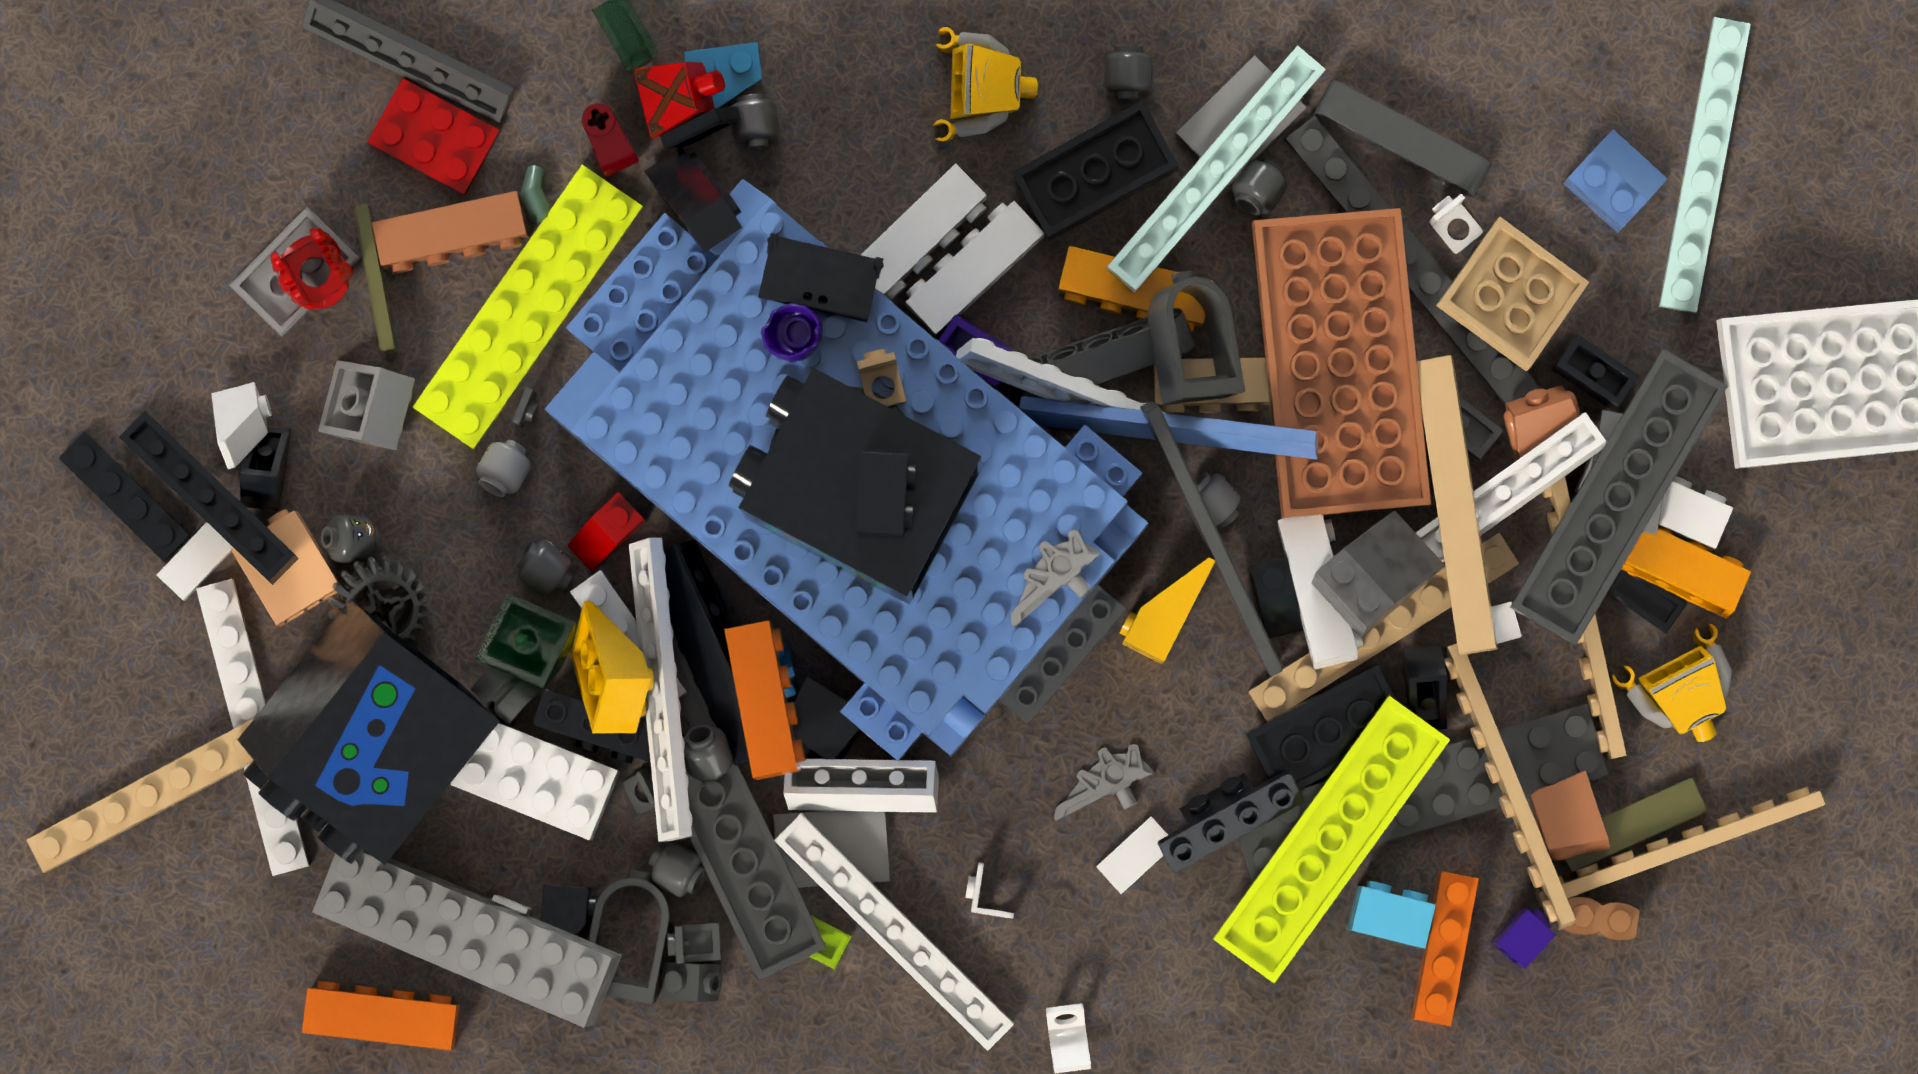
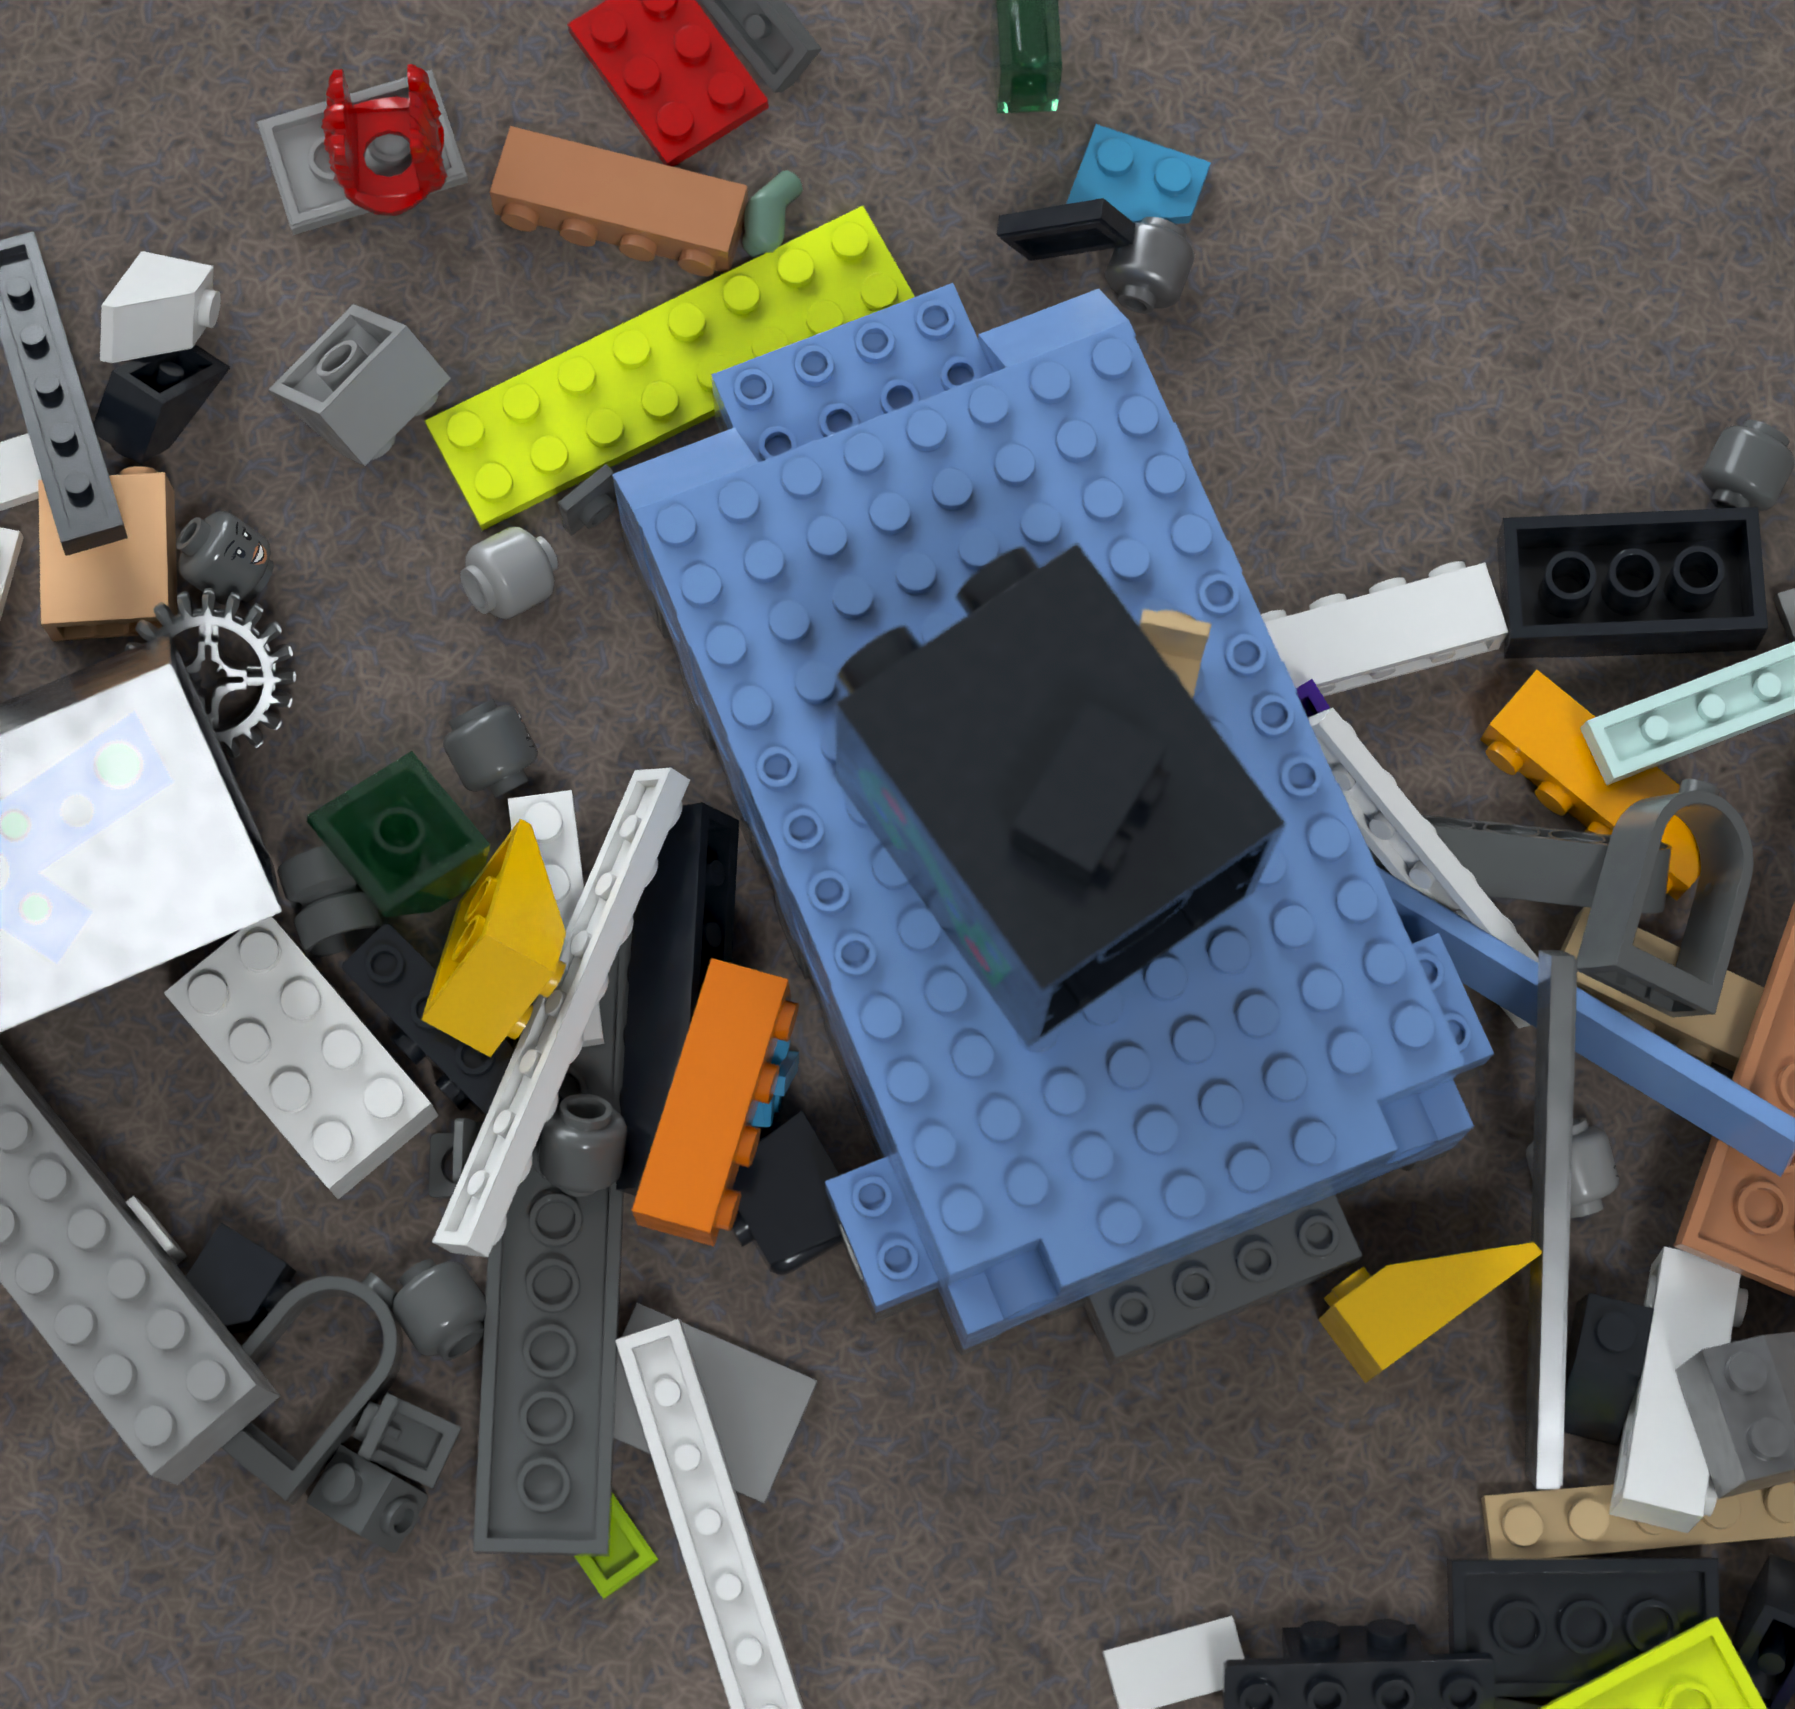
camera: 20 degrees right, 10 degrees down
(375, 280) = (469, 220): olive tile -> none
(606, 532) = (613, 741): red slope -> none
(610, 144) = (919, 190): dark red piece -> none
(676, 94) = (1054, 161): red torso -> none
(695, 198) = (1013, 294): black brick -> none
(792, 332) = (1060, 515): dark purple hair -> none
(821, 272) = (1123, 441): black door -> none
(863, 786) = (800, 1326): white brick -> none
(924, 227) = (1338, 538): white brick -> none
(973, 891) = (886, 1590): white bracket -> none
(983, 84) = (1519, 380): yellow torso -> none
(1056, 569) = (1296, 1111): light grey piece -> none
(1109, 776) = (1194, 1517): light grey piece -> none

